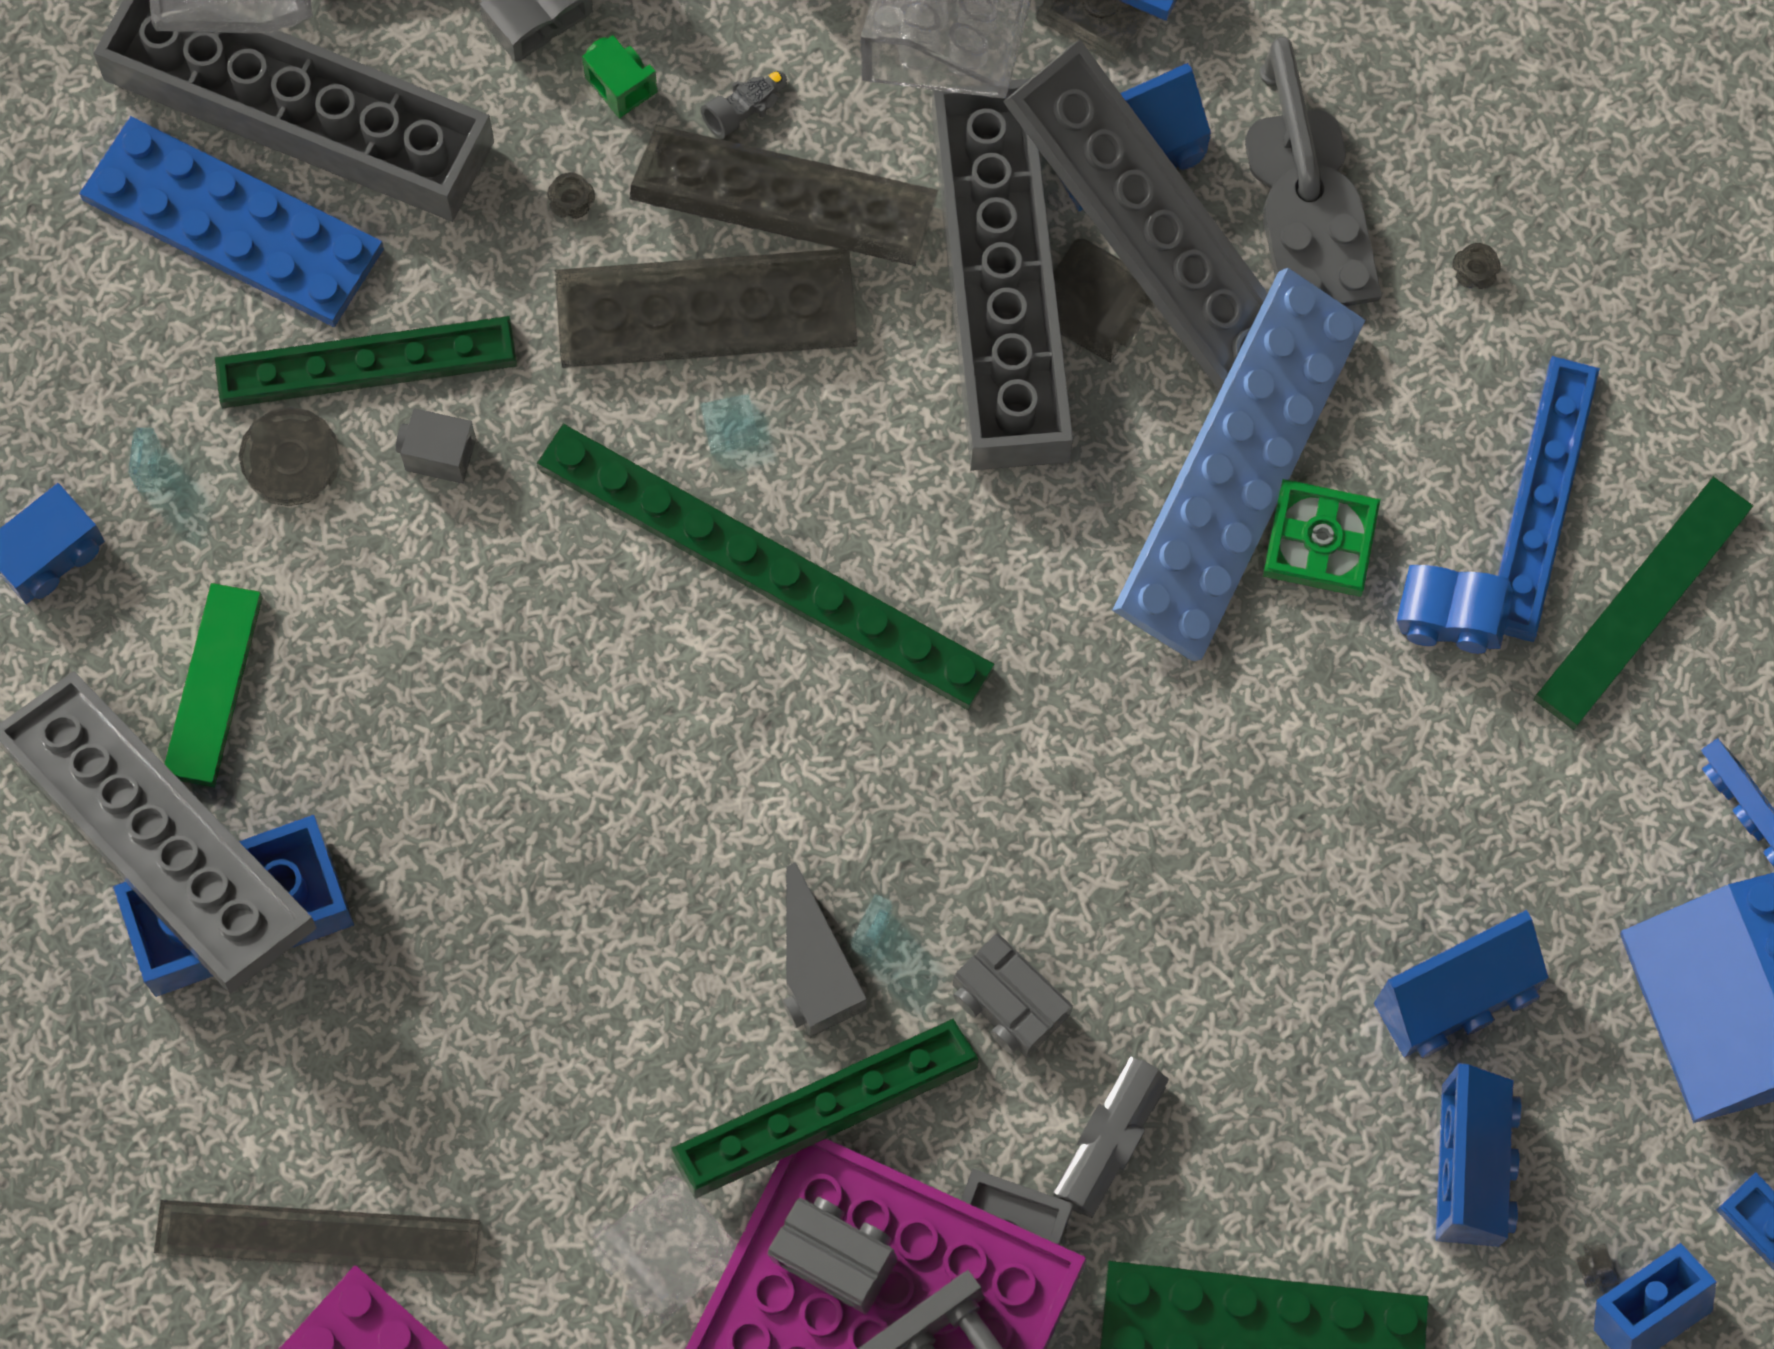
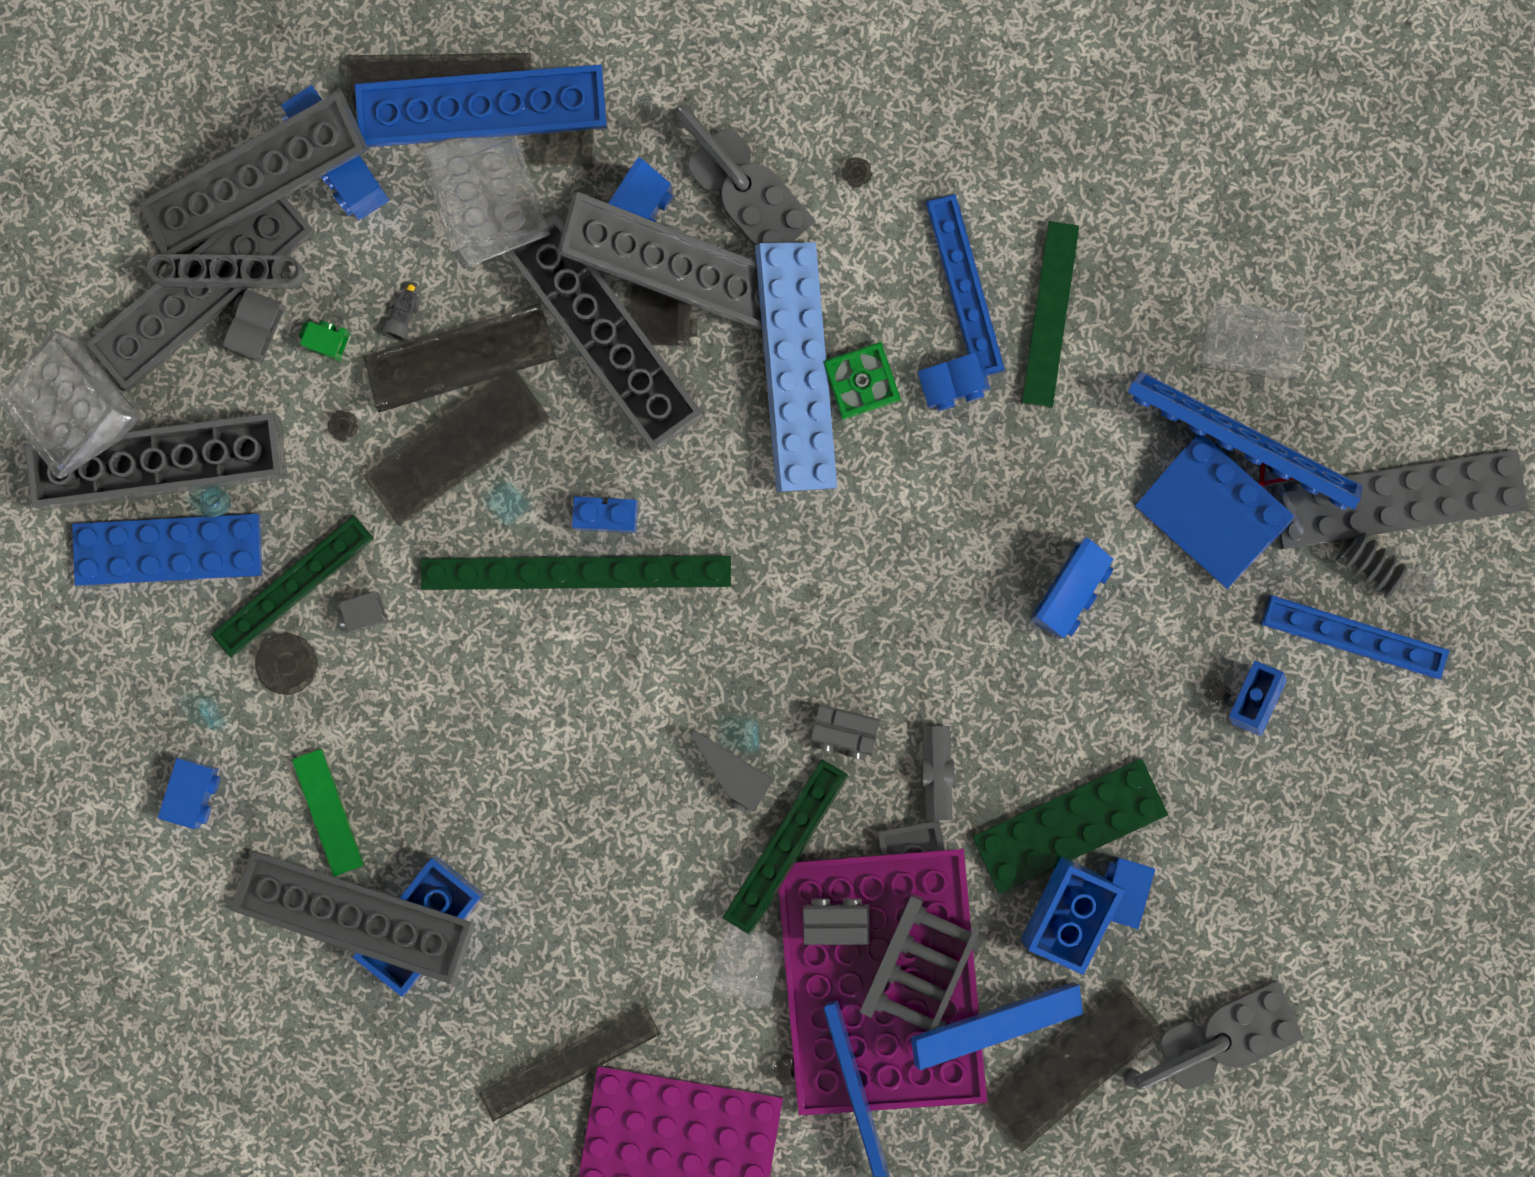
camera: 25 degrees left, 15 degrees up
(335, 194) = (214, 502): none -> clear light blue plate
(861, 516) = (595, 515): none -> blue piece
(1477, 1158) = (1129, 675): blue slope -> none

